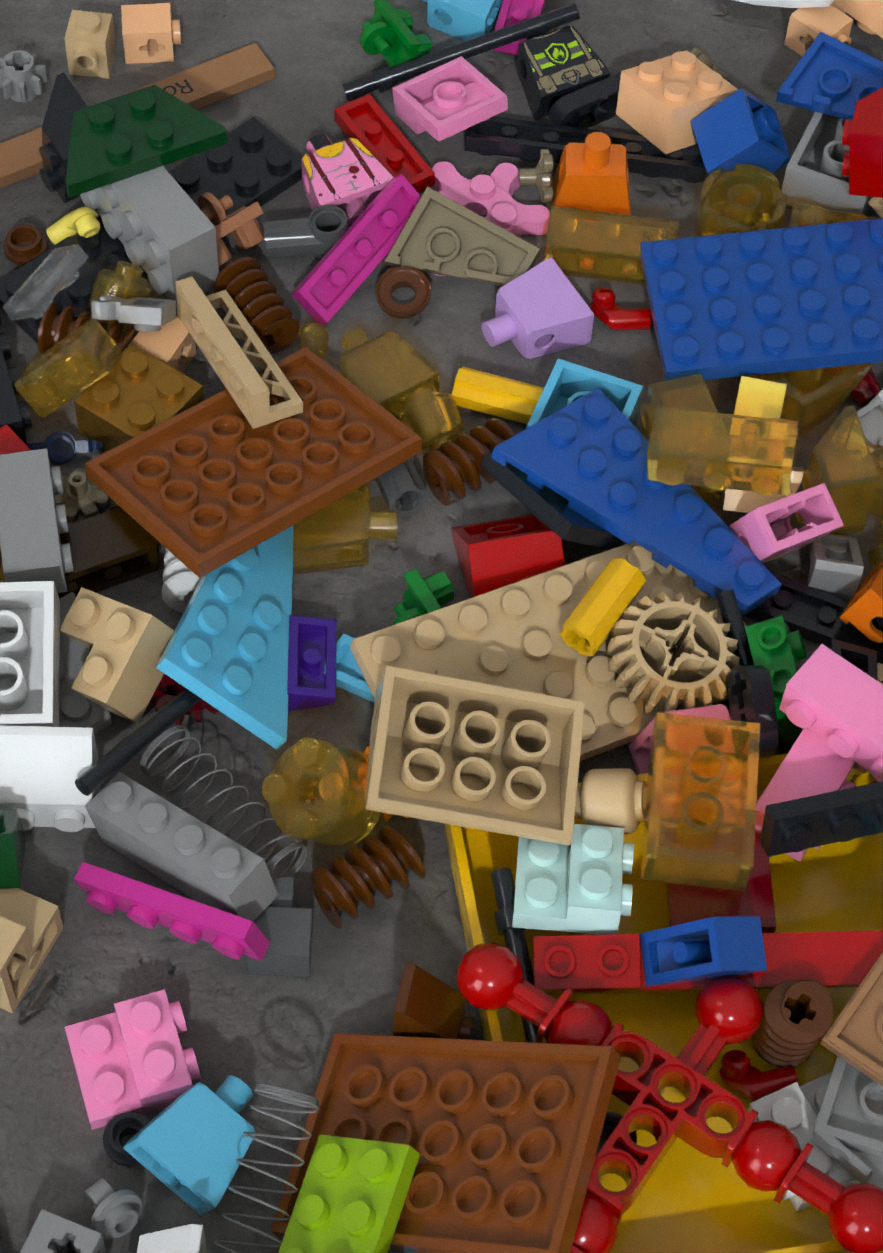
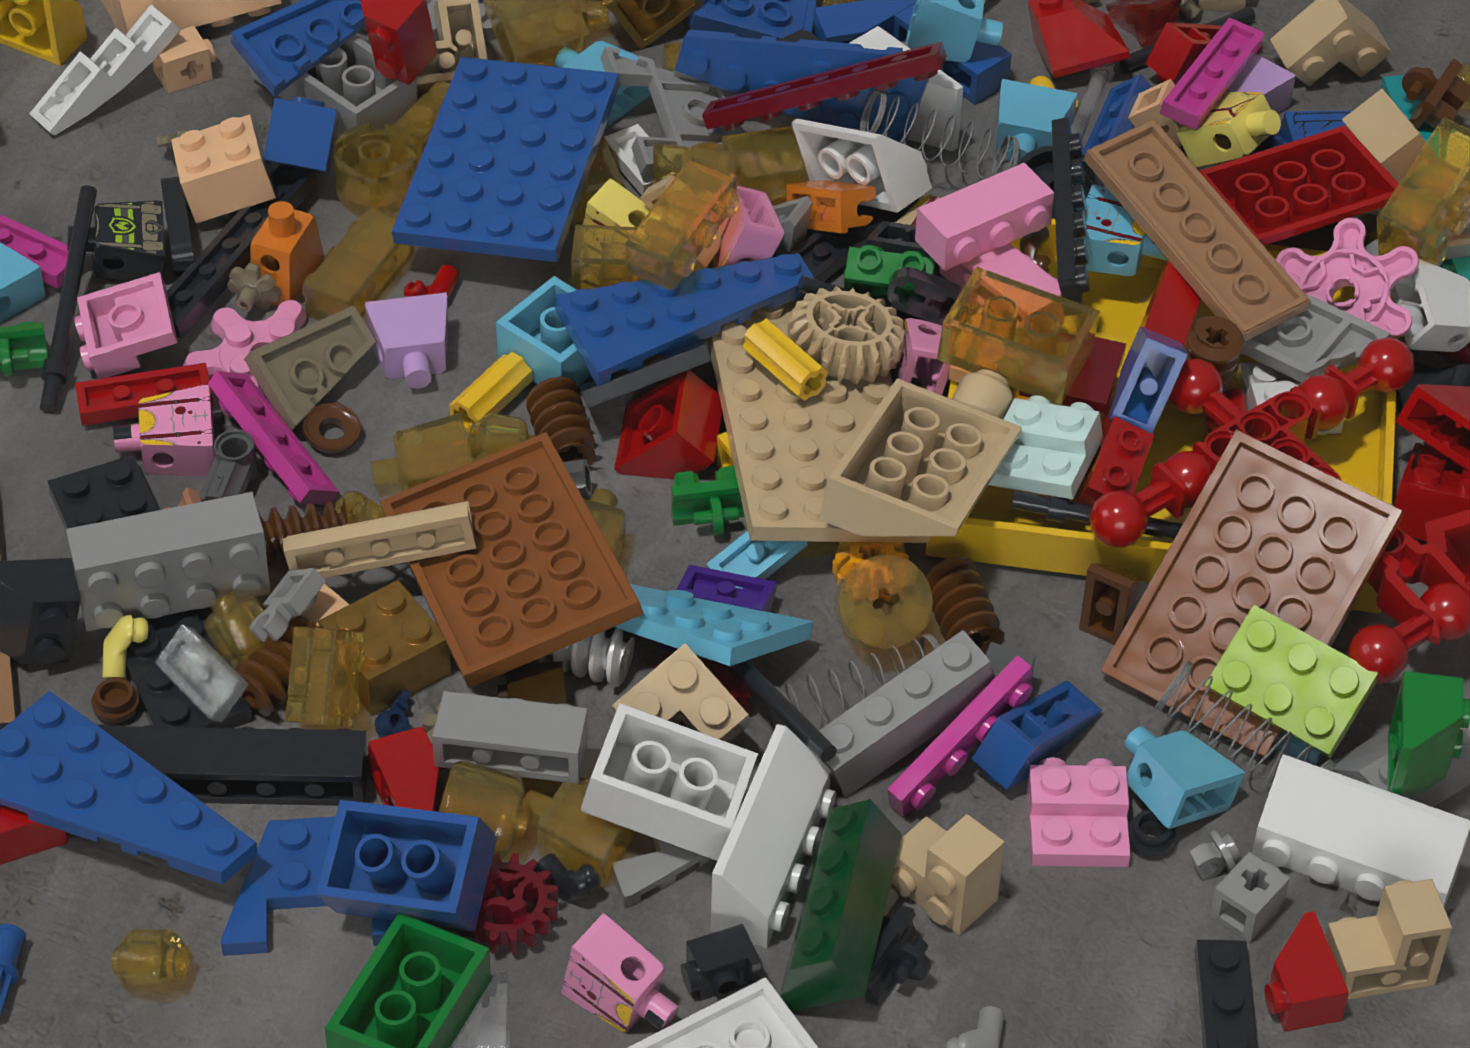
camera: 70 degrees left, 10 degrees down
(135, 136) = (107, 520): dark green wing -> none
(226, 990) = (1034, 733): none -> blue slope

